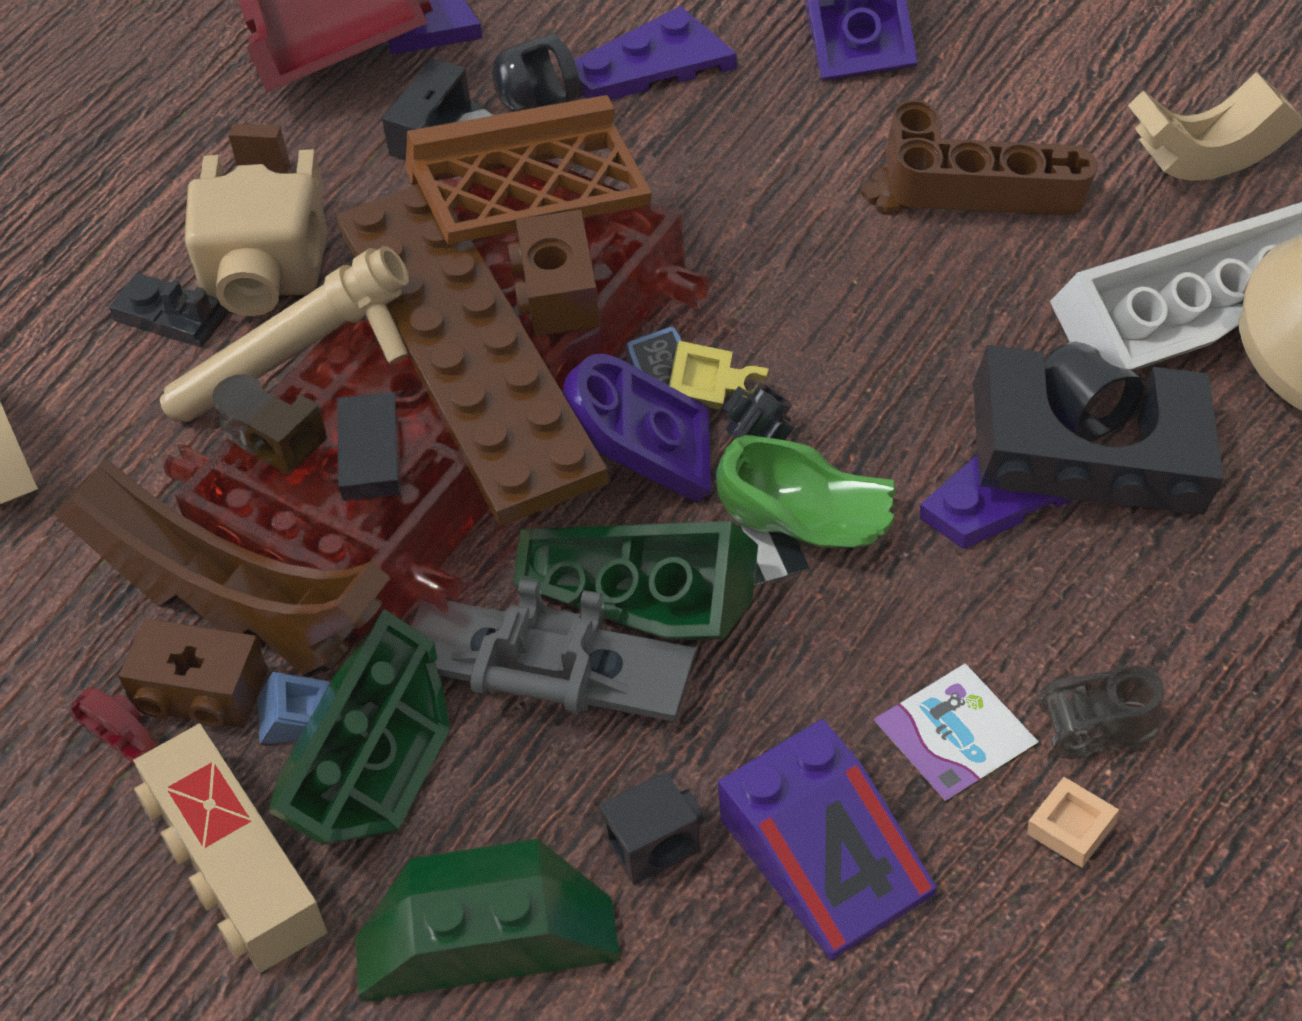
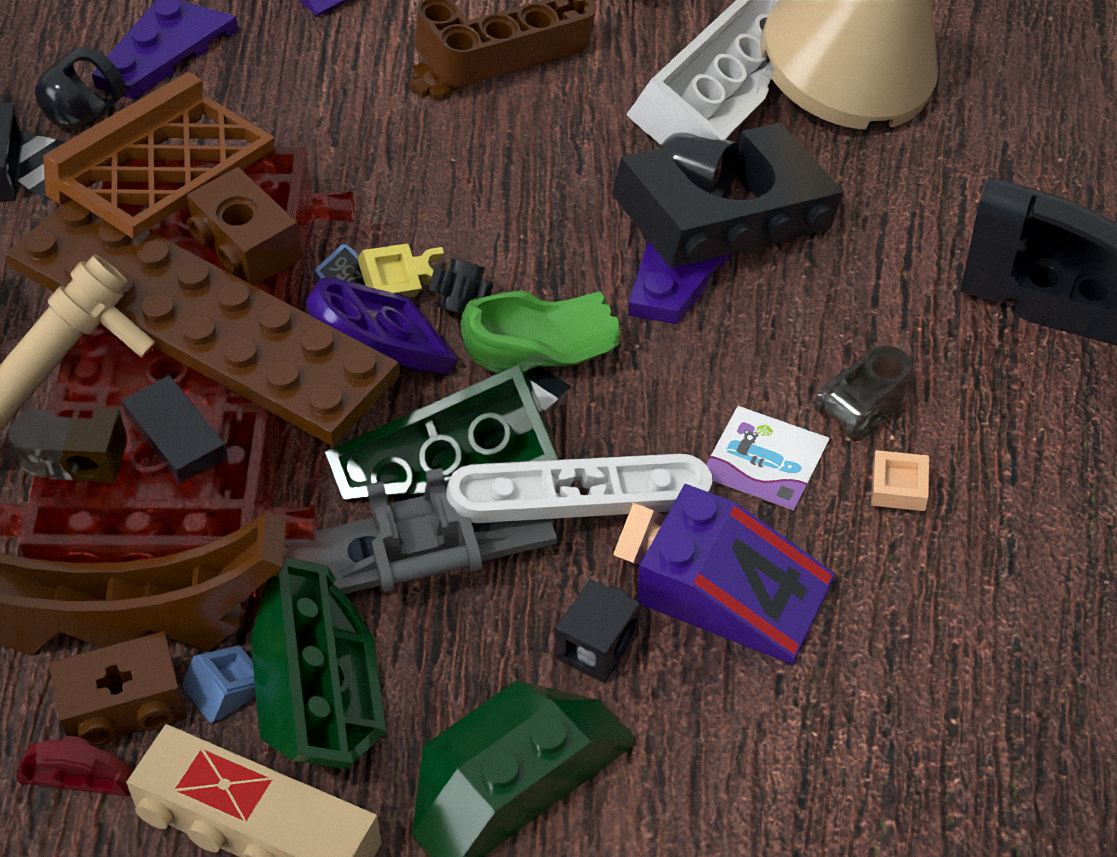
camera: 35 degrees left, 0 degrees up
(669, 652) = (529, 488): none -> white piece
(747, 743) = (638, 533): none -> light nougat plate

